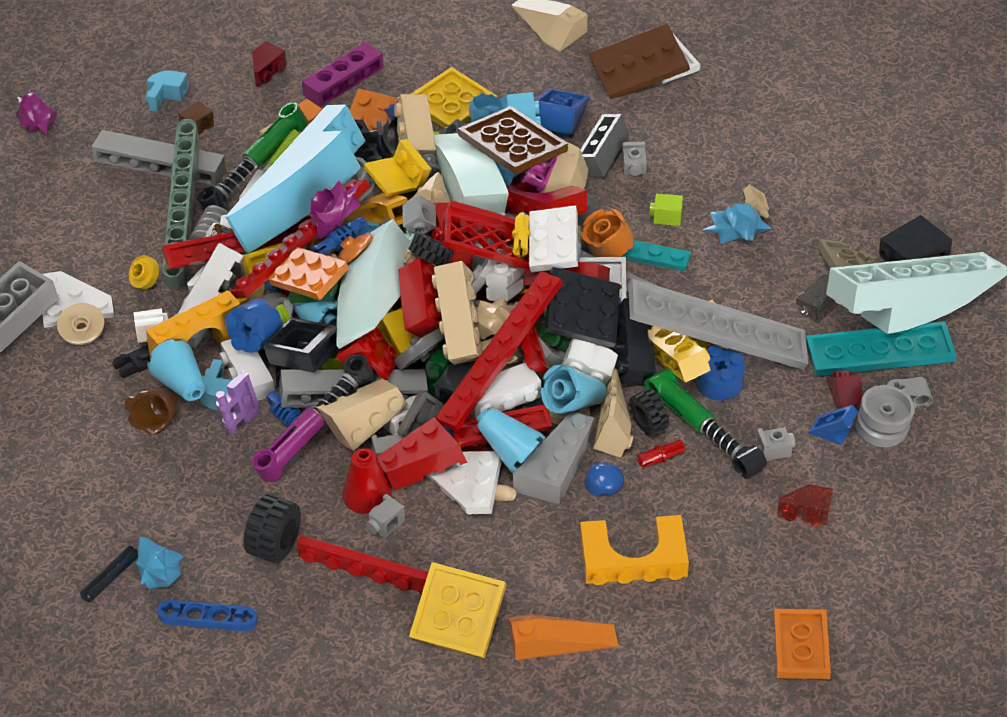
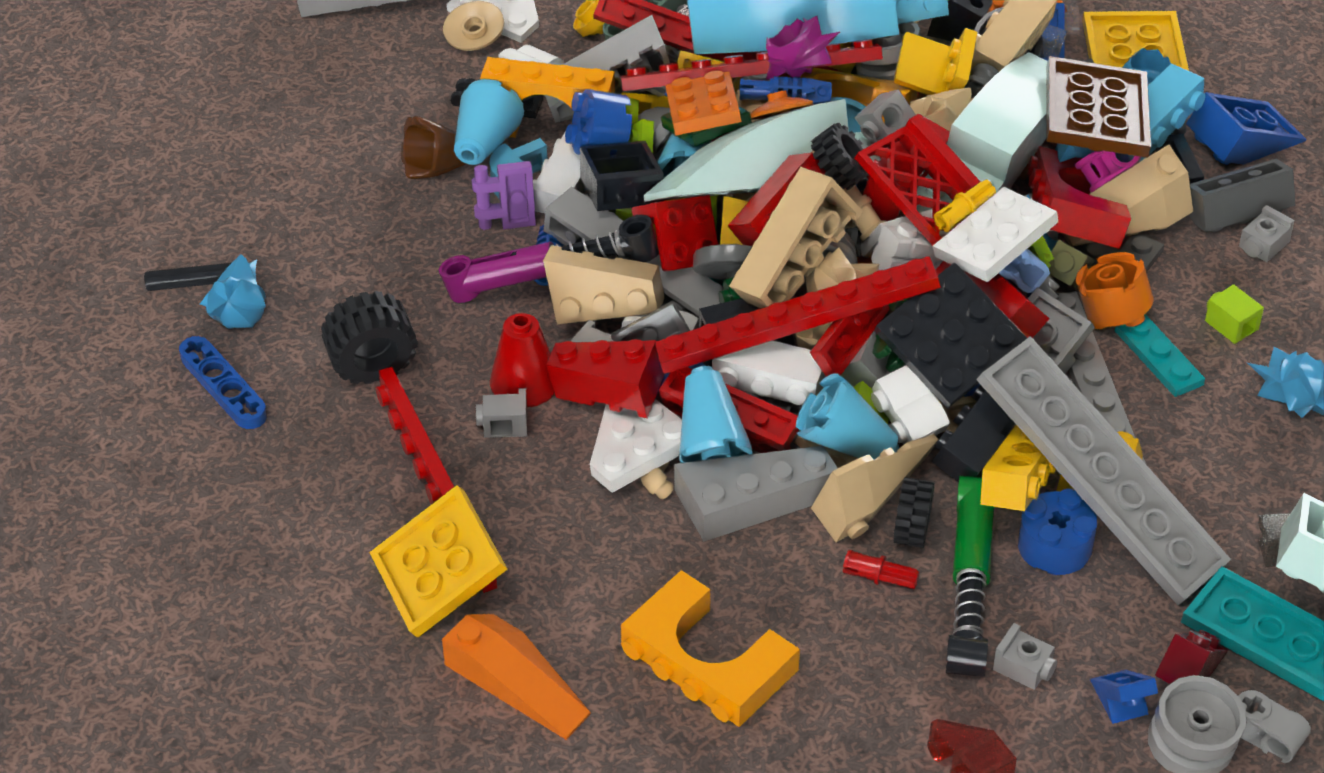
camera: 45 degrees right, 0 degrees up
(604, 479) = (782, 550): blue hair -> none

